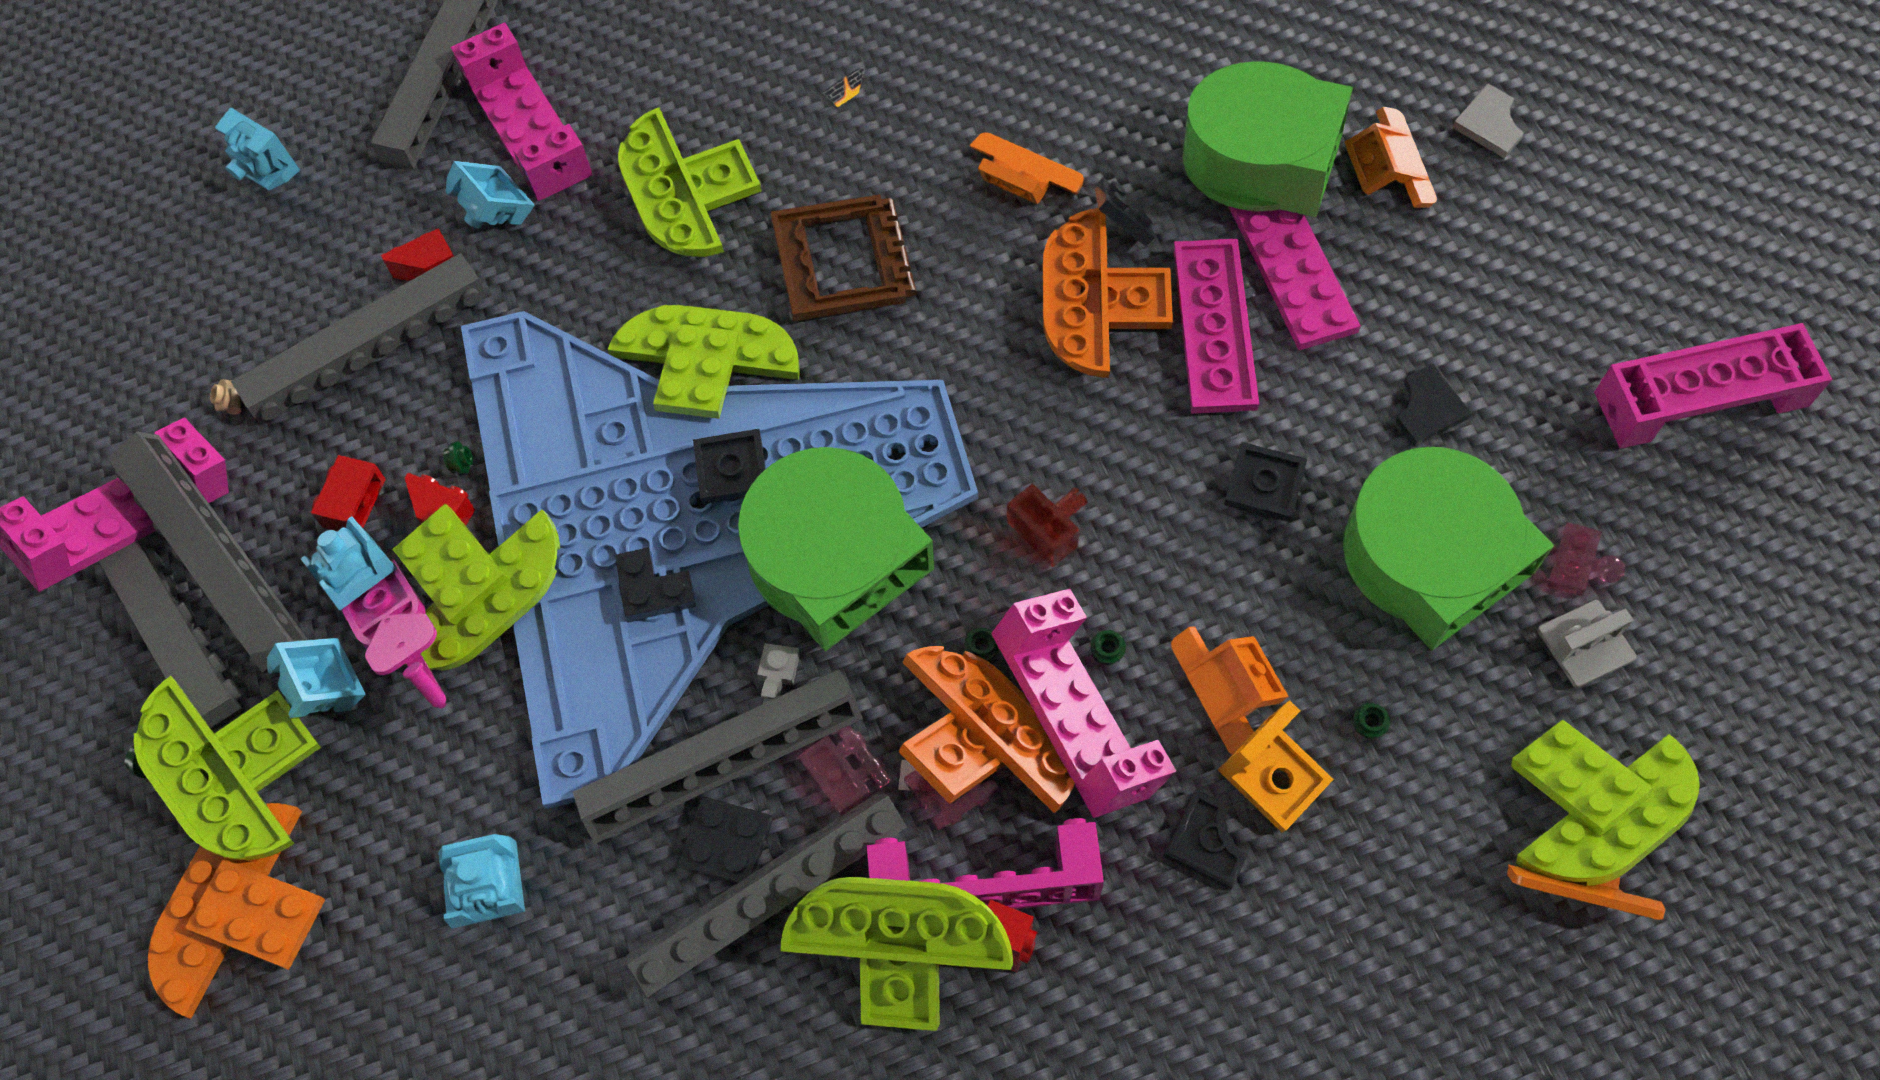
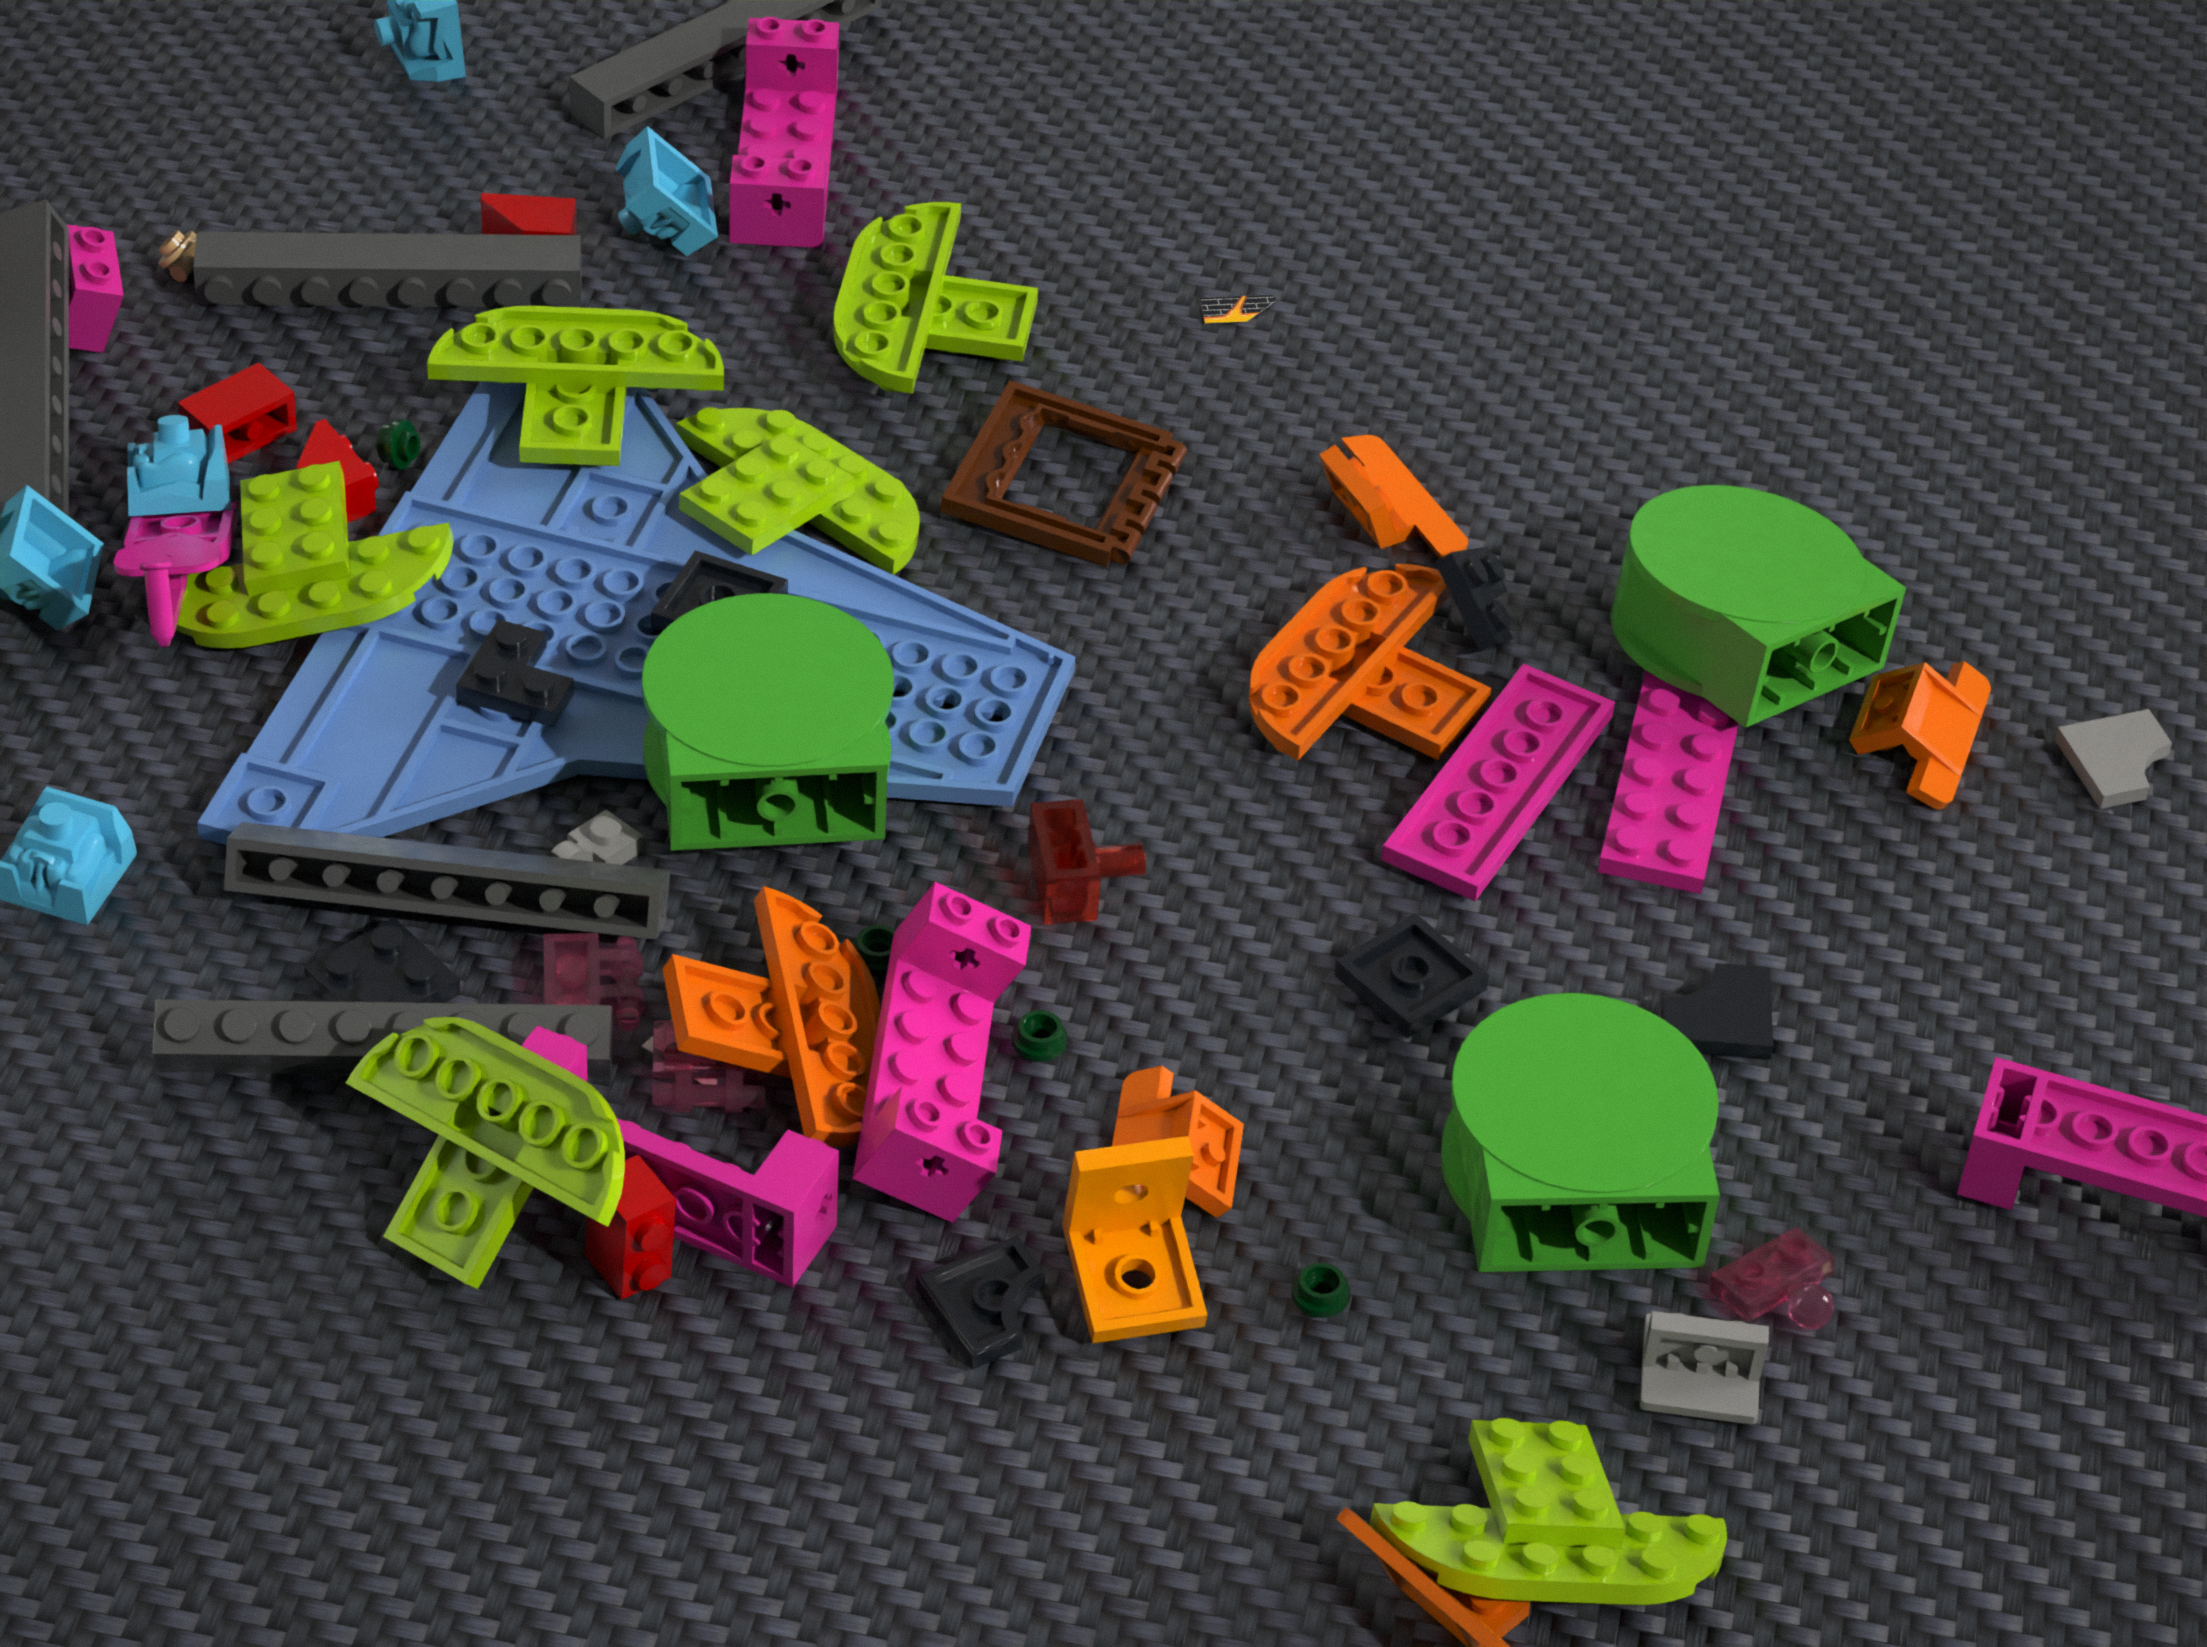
camera: 25 degrees right, 20 degrees down
(532, 351) = (576, 371): none -> lime plate

